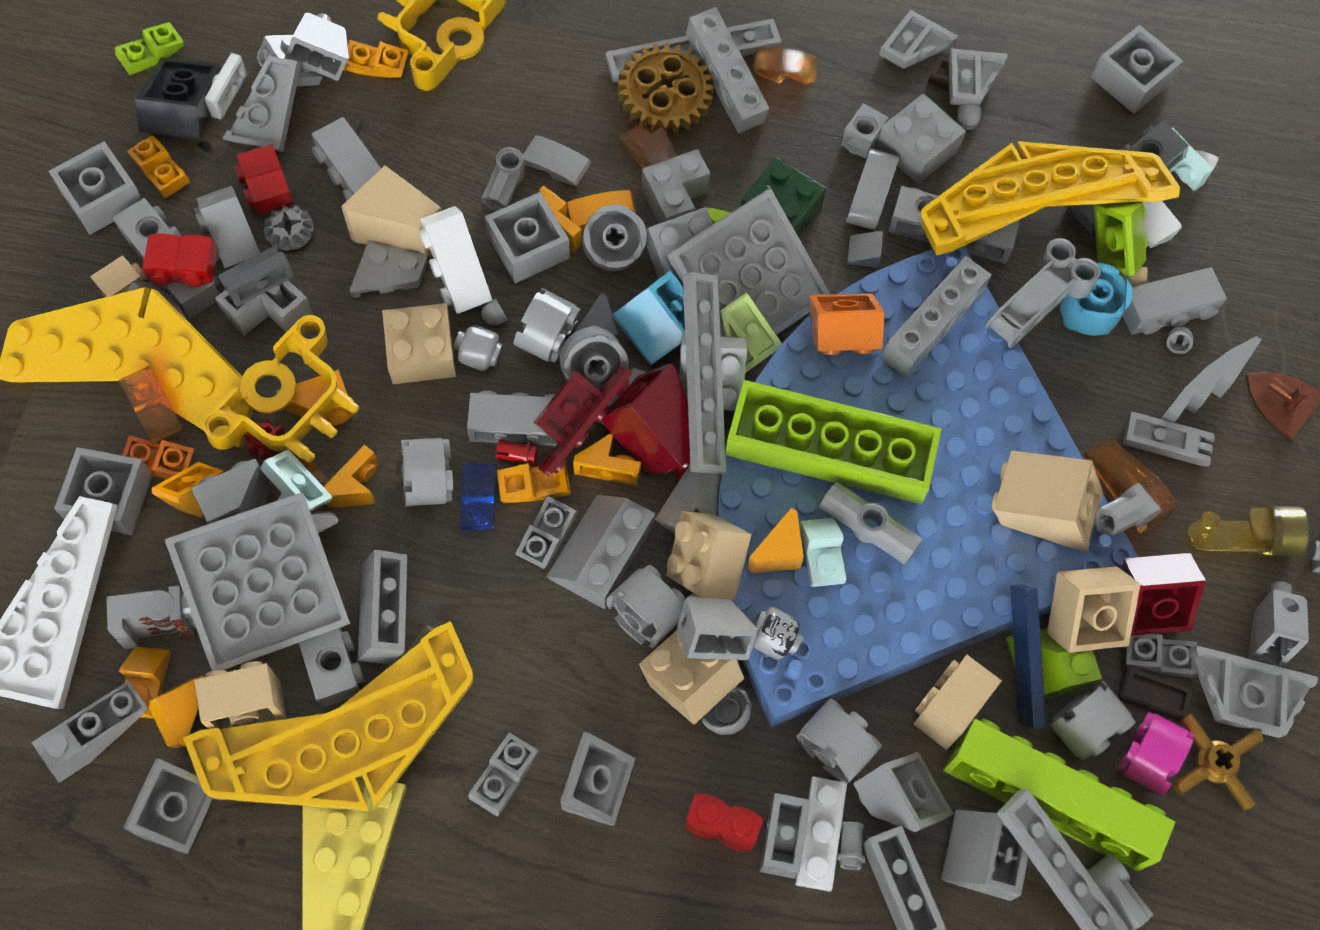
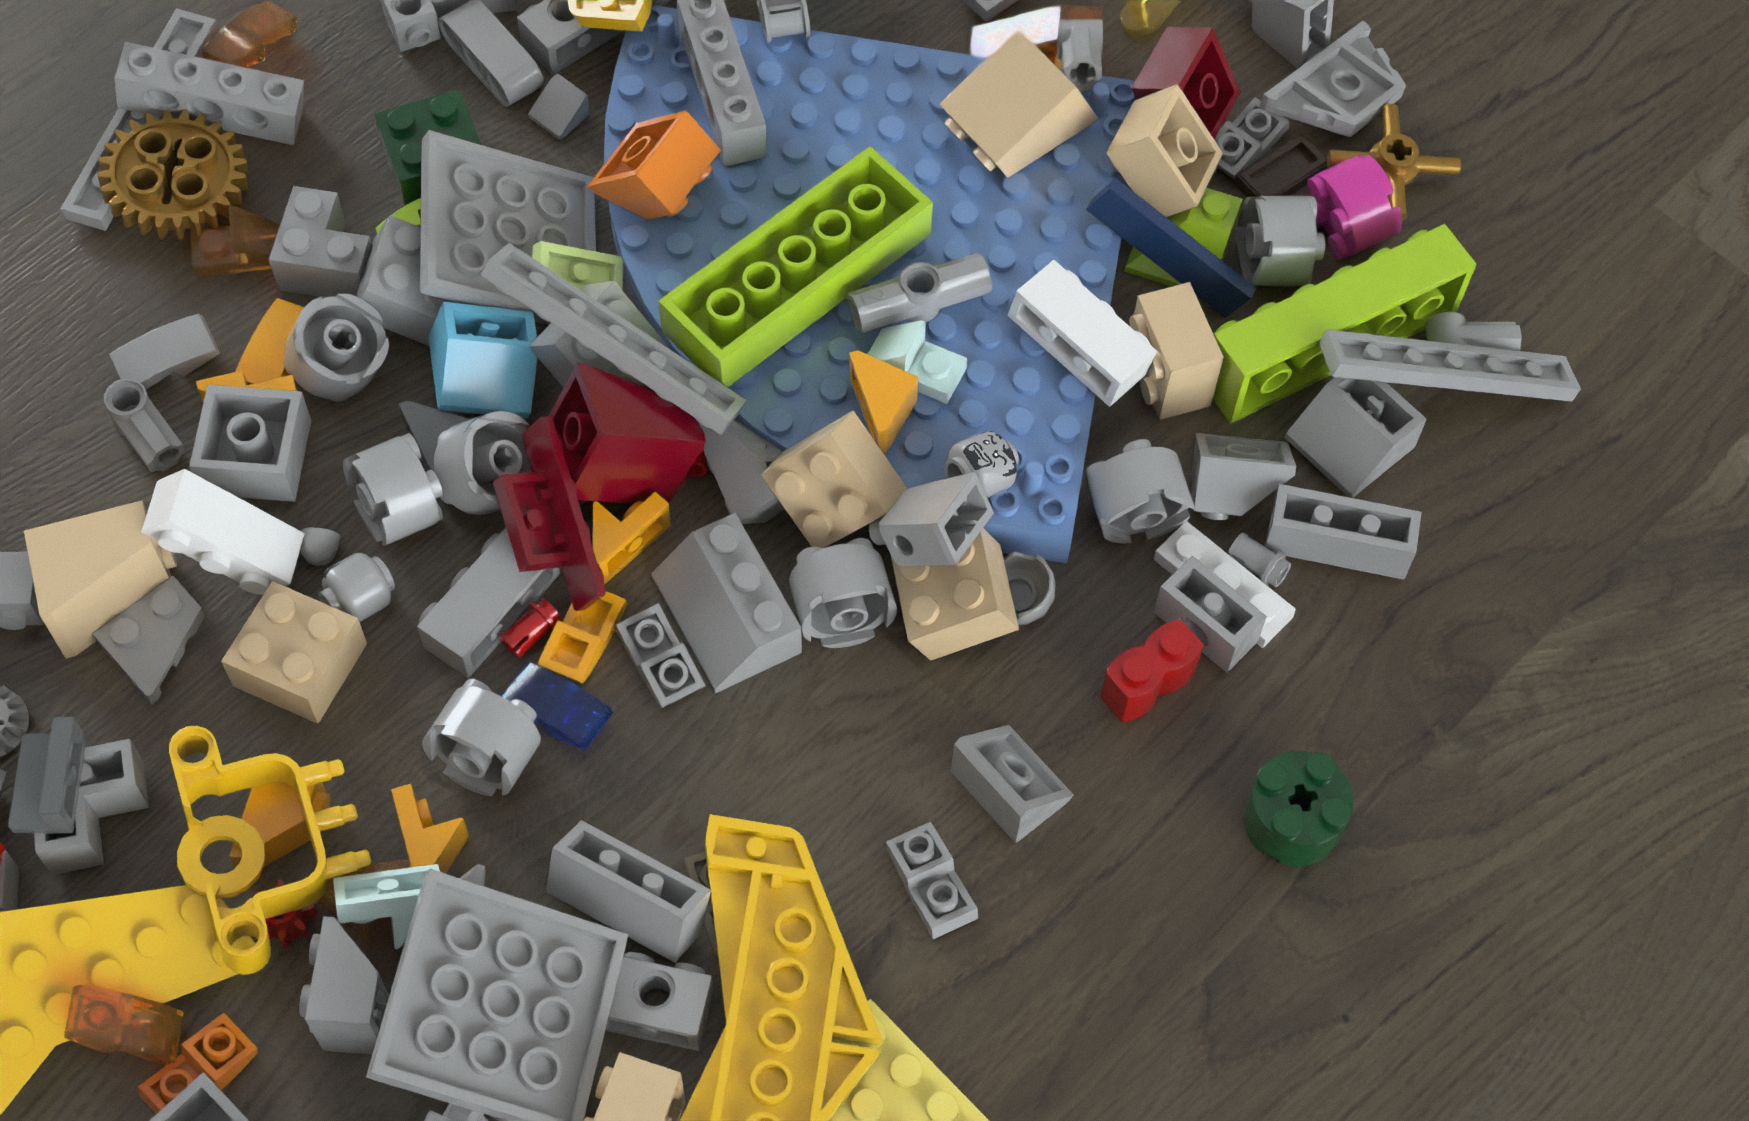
camera: 55 degrees left, 5 degrees down
(177, 489) = (281, 1044): light orange slope -> none
(916, 636) = (1082, 332): none -> white brick

